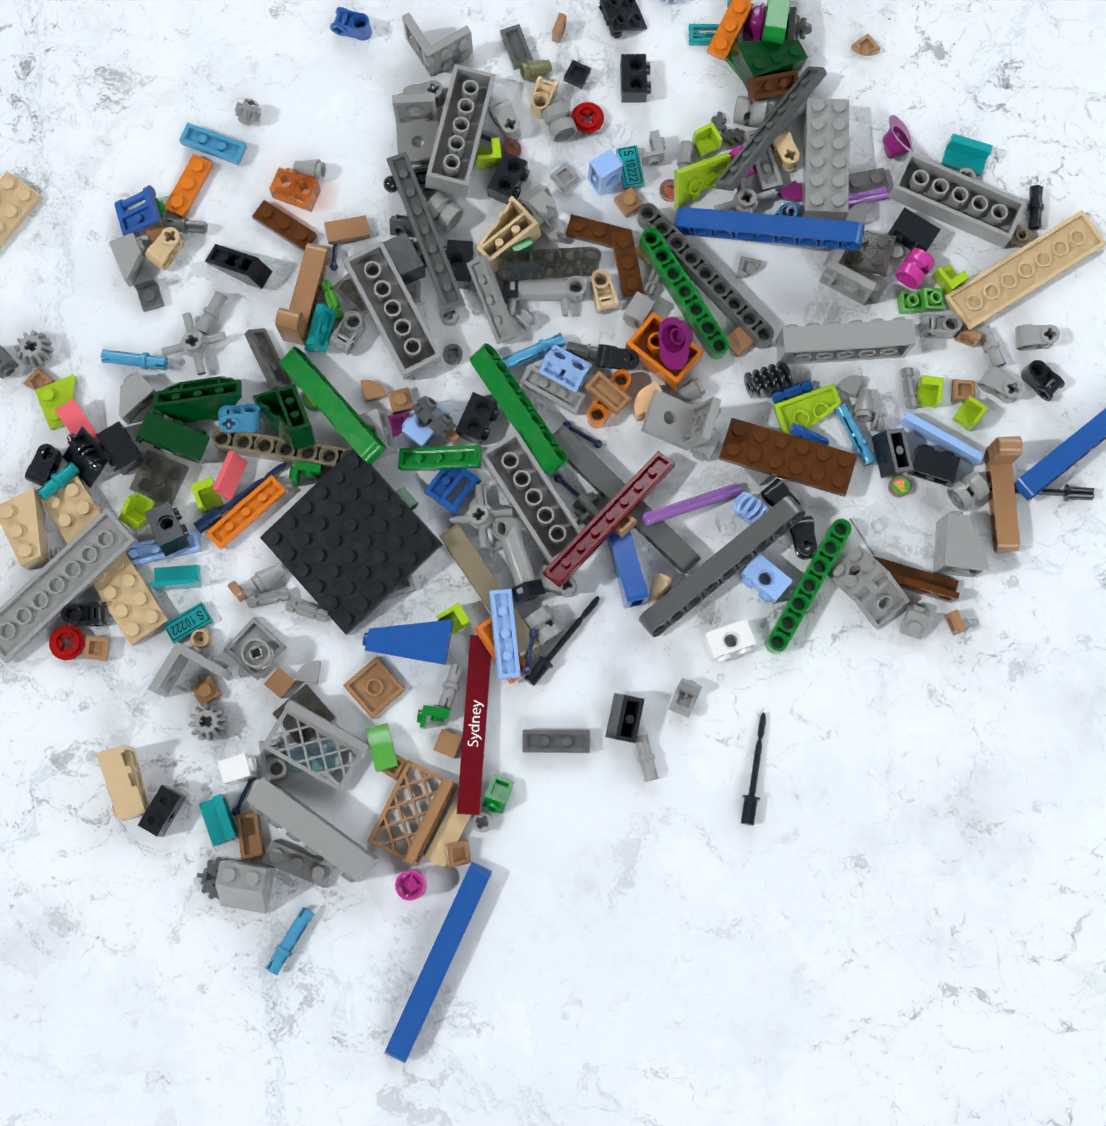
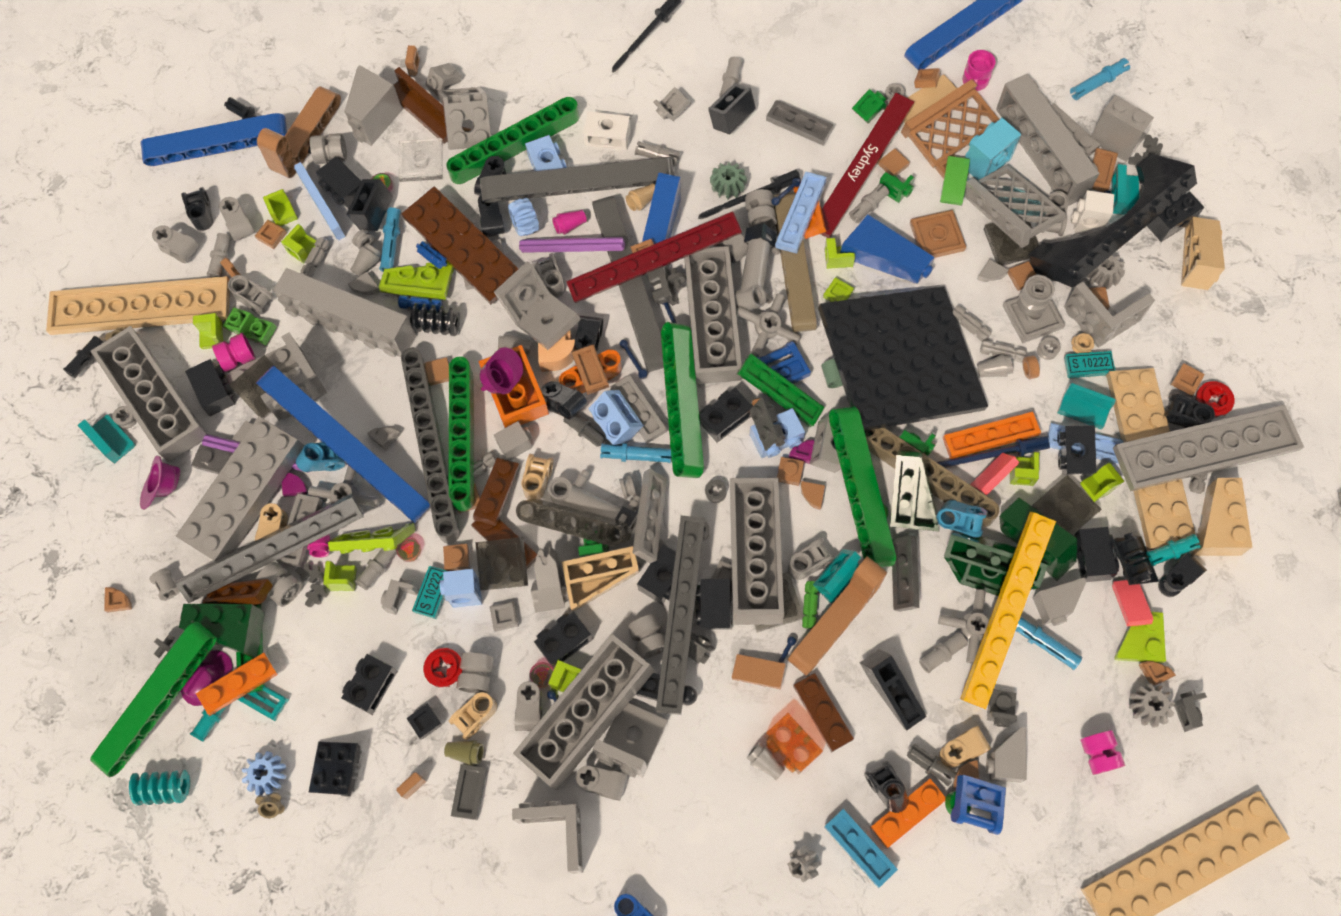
camera: 145 degrees left, 10 degrees down
(59, 293) = (1102, 752): none -> dark pink wheel
(171, 360) = (1007, 610): none -> yellow plate
(182, 826) = (1074, 259): none -> black arch
(212, 193) = (887, 783): none -> black piece
(222, 619) = (1053, 343): none -> light grey bush
(360, 791) = (992, 148): none -> medium azure brick
(437, 584) = (838, 291): none -> lime tile
(587, 207) = (501, 563): none -> clear smoke plate
(597, 646) = (728, 180): none -> sand green gear
(631, 435) = (589, 332): none -> black piece
(670, 640) = (656, 152): none -> light grey pin
(698, 471) = (550, 273): none -> light grey piece
(710, 531) = (568, 221): none -> dark pink cone
(836, 71) = (164, 584): none -> light grey bush

